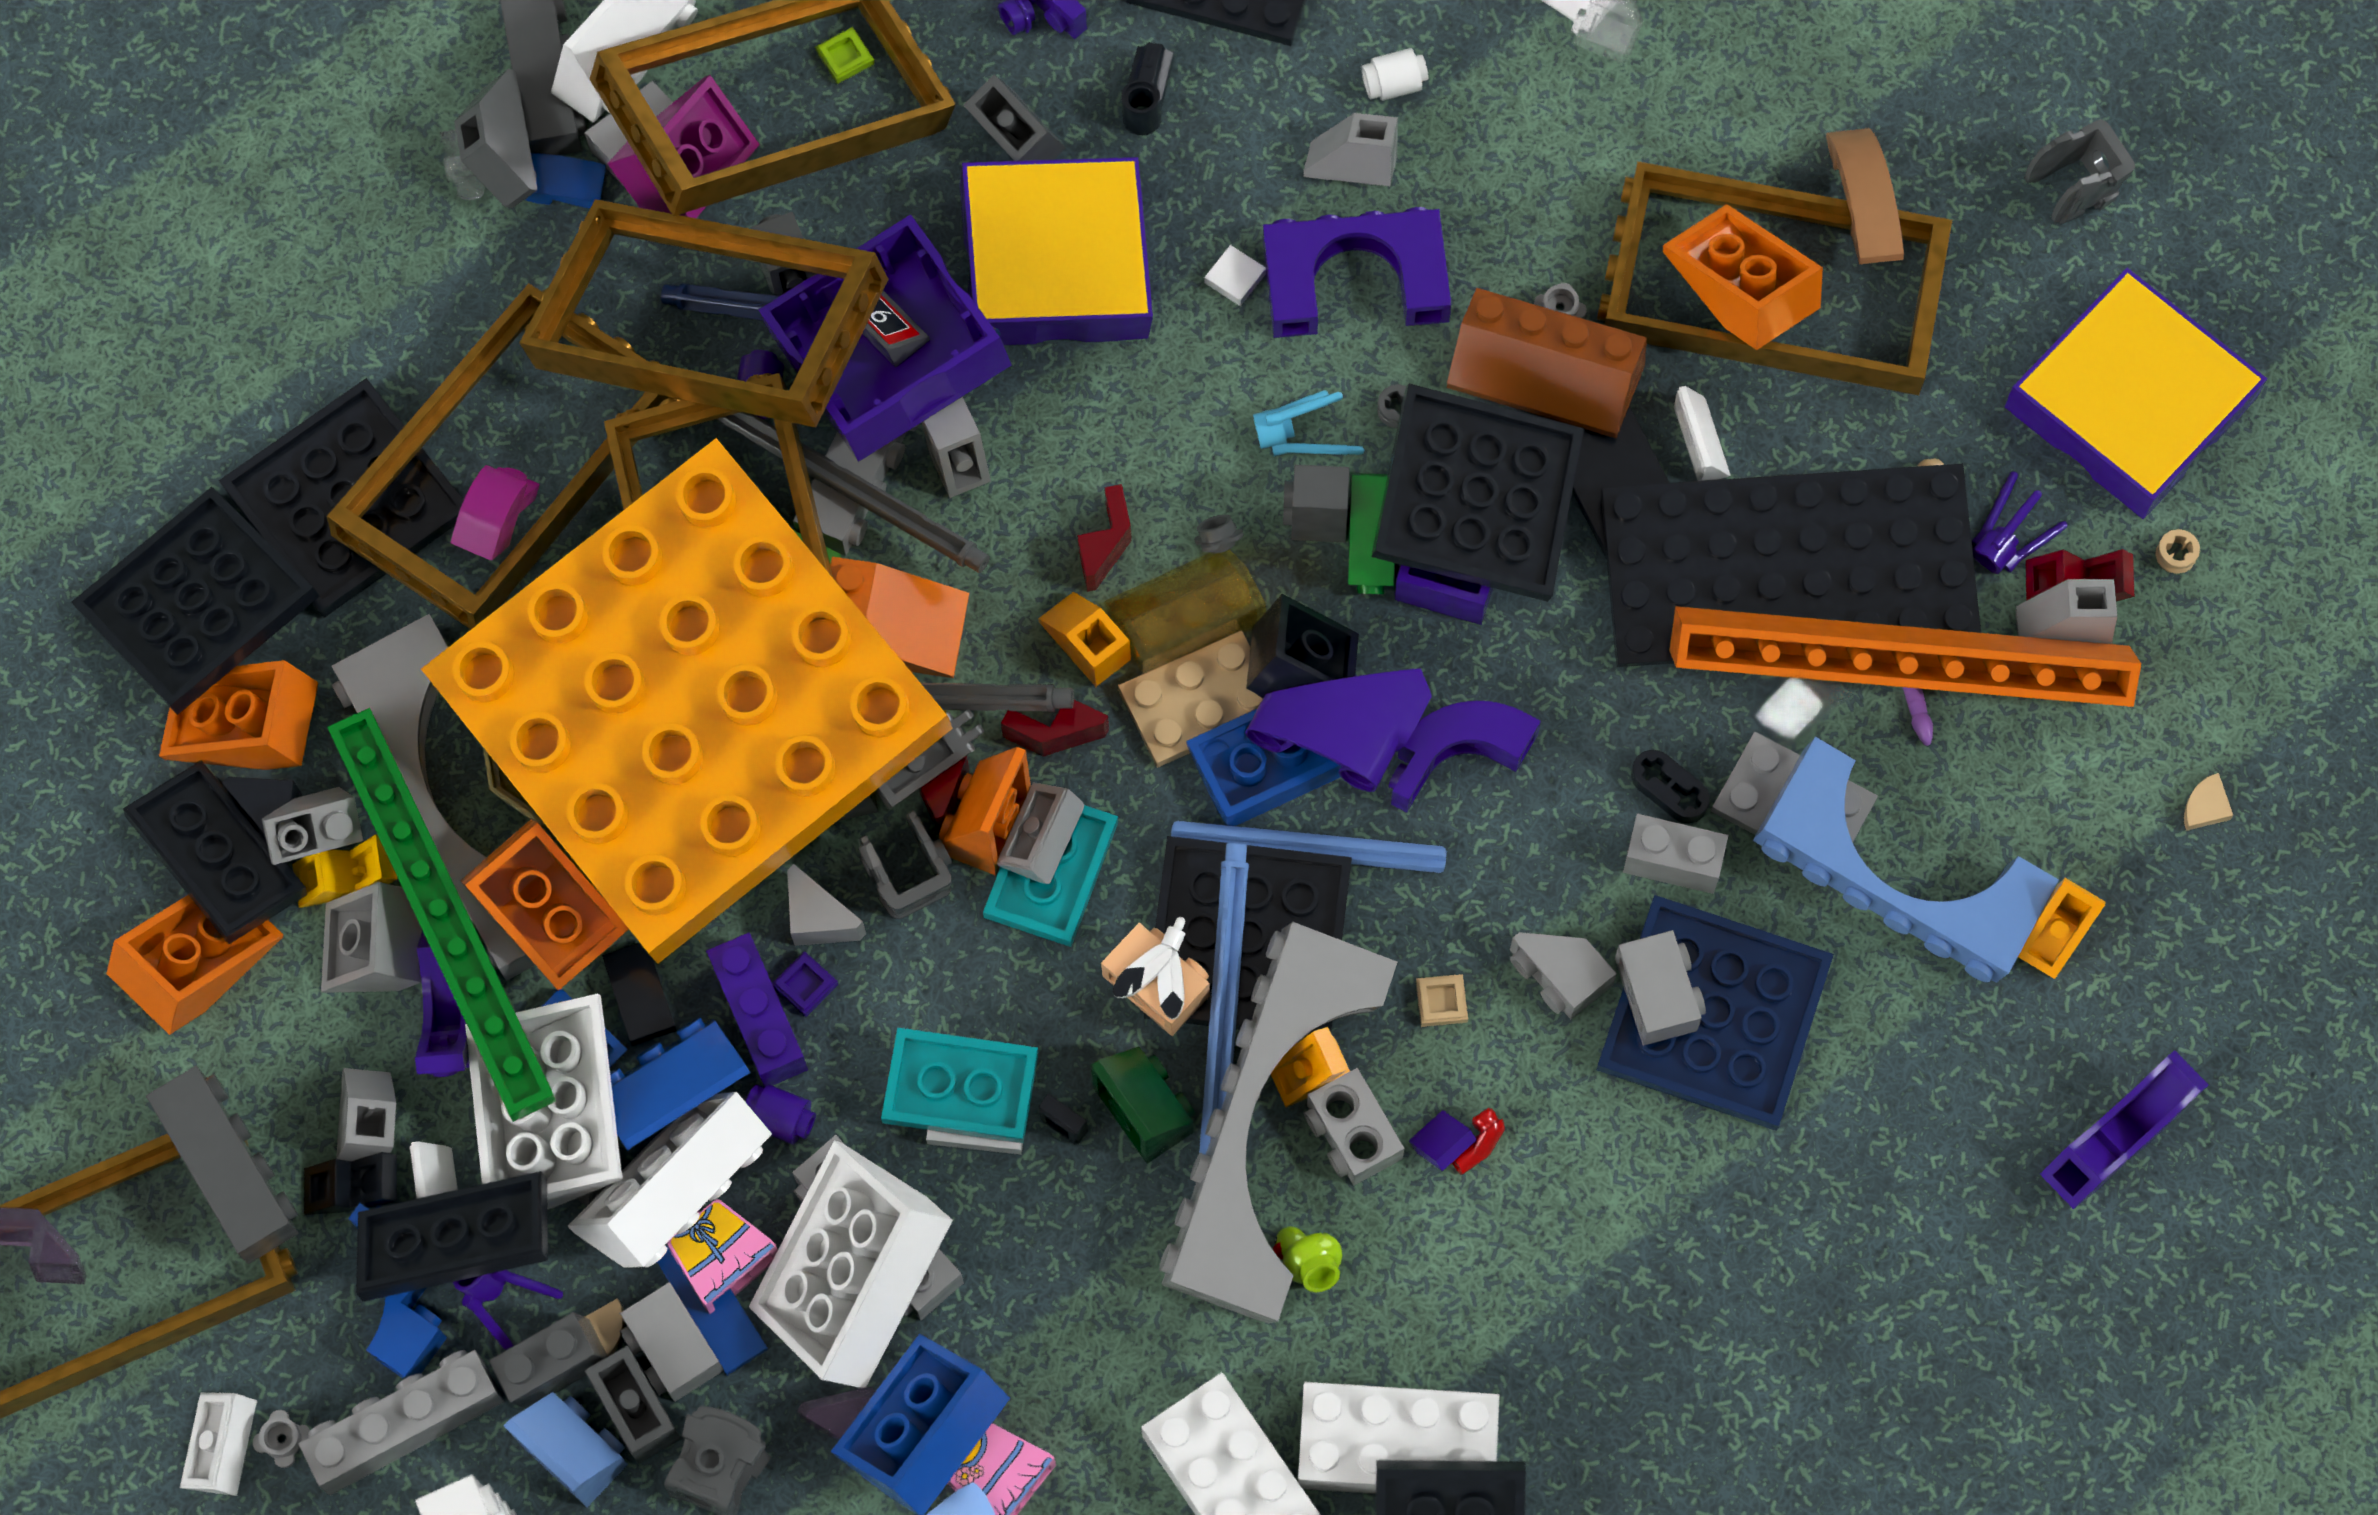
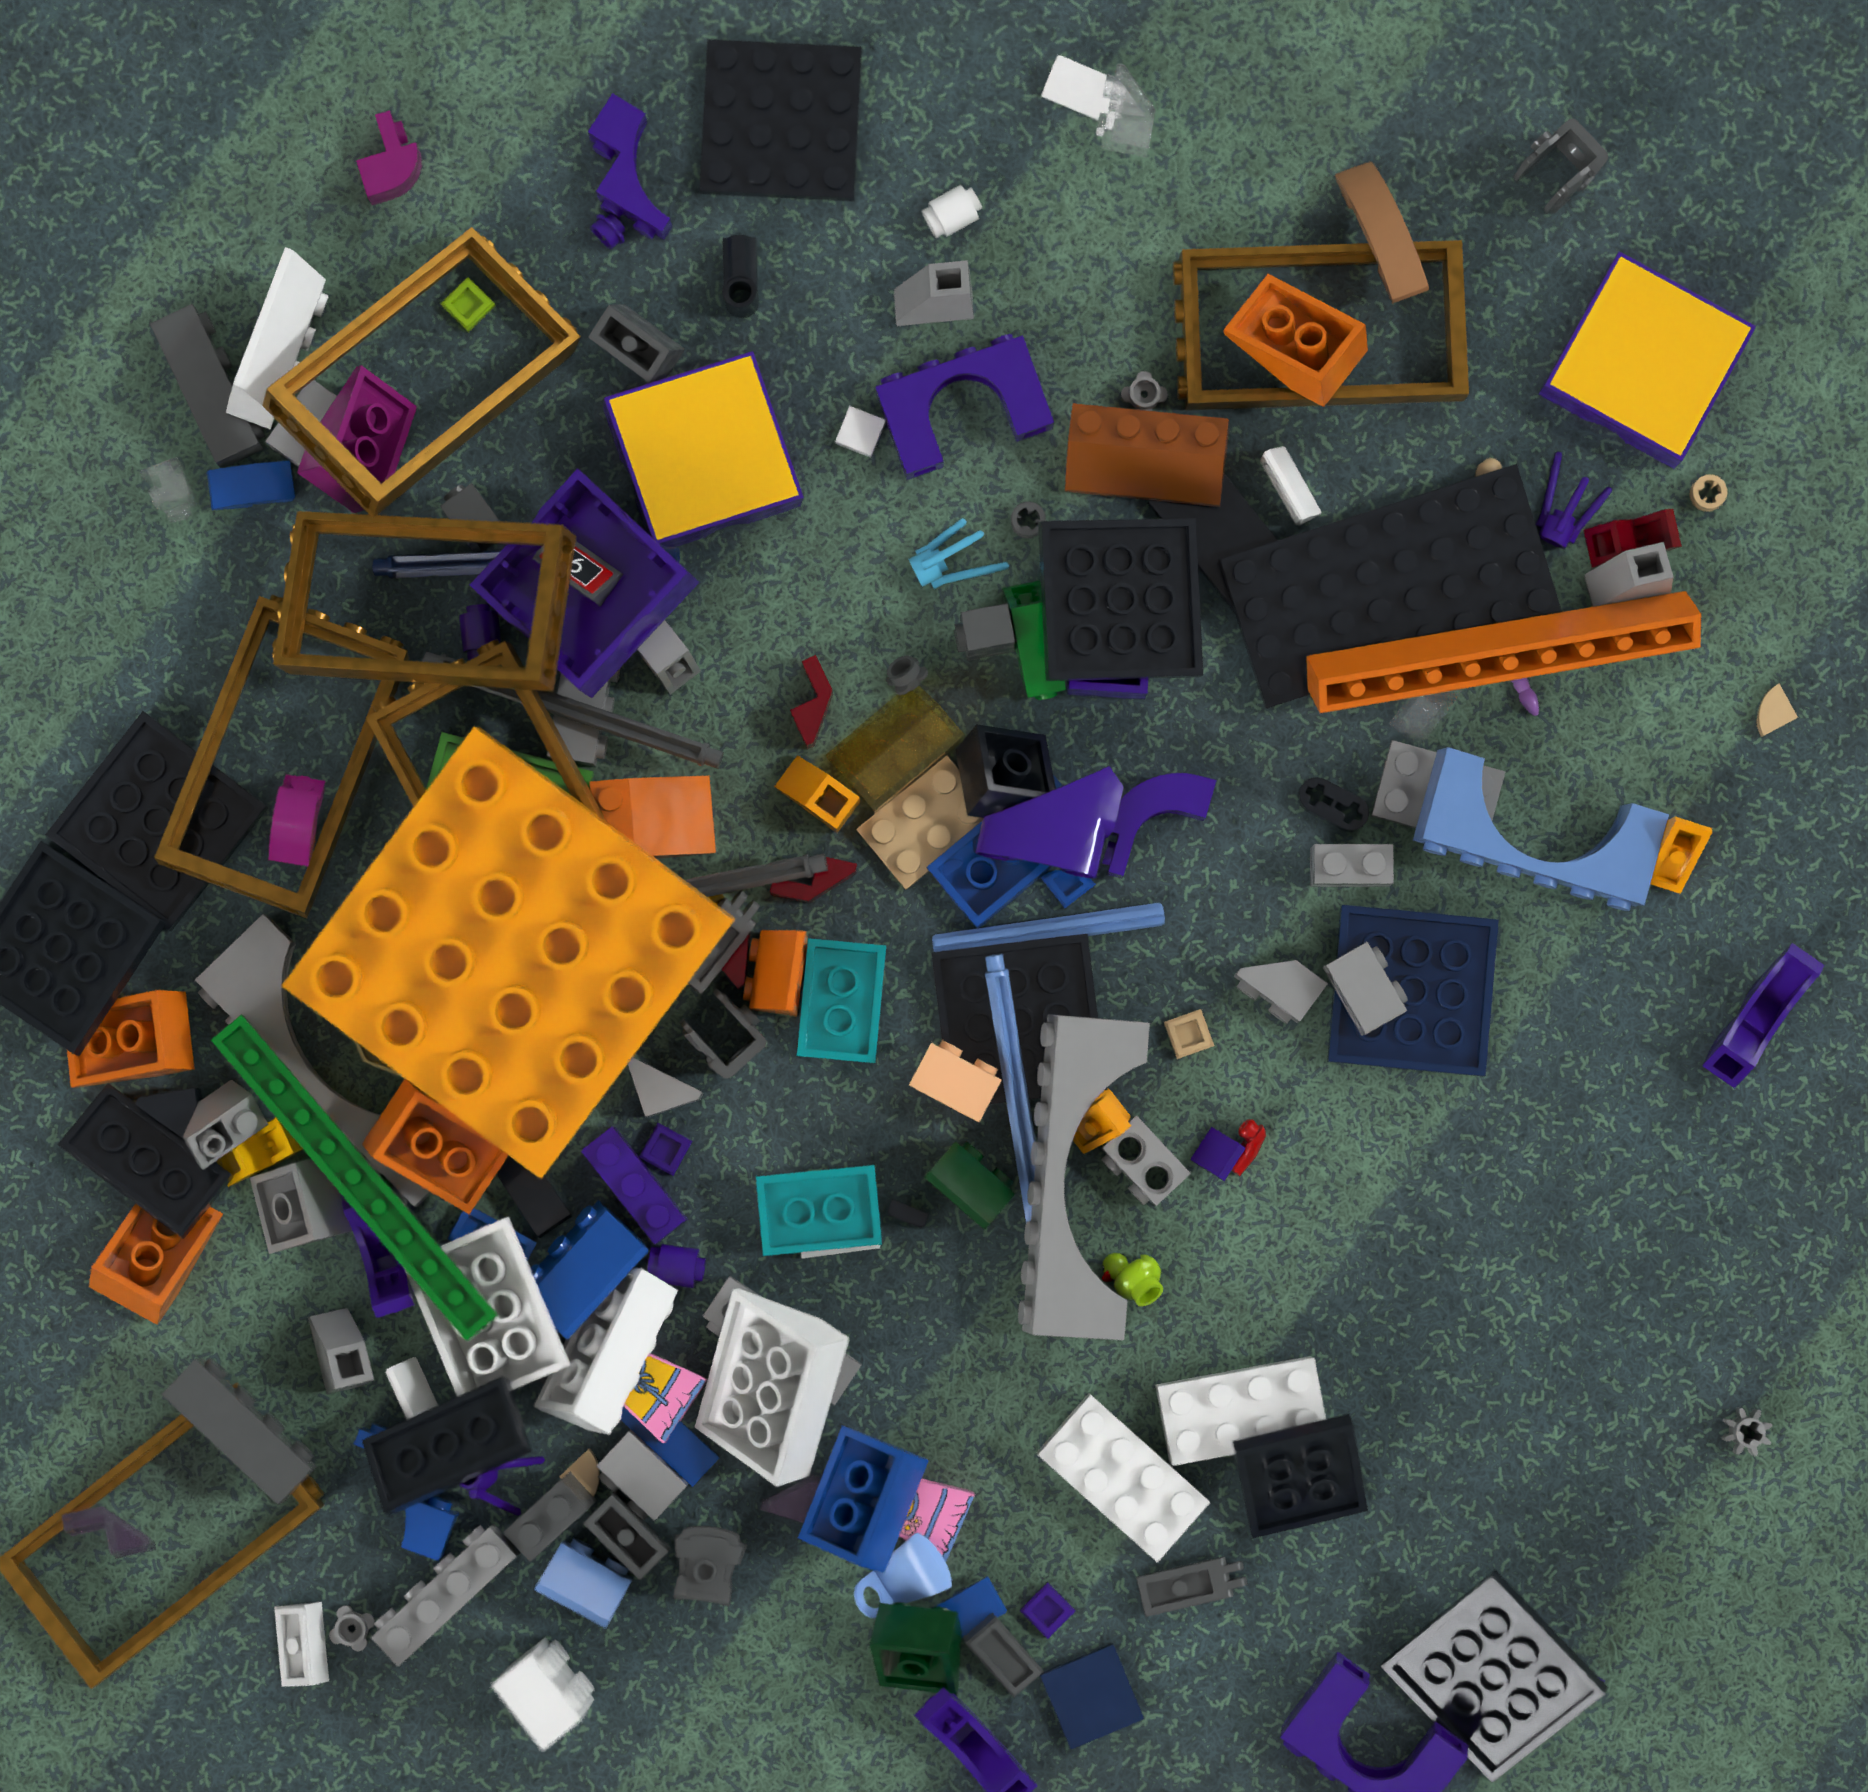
camera: 20 degrees left, 15 degrees up
(343, 1184) = (344, 1411): black slope -> none
(496, 141) = (192, 469): dark grey slope -> none
(1041, 832) = (827, 977): light grey slope -> none
(1162, 963) = (961, 1074): white piece -> none
(1343, 804) = (1066, 886): none -> blue tile

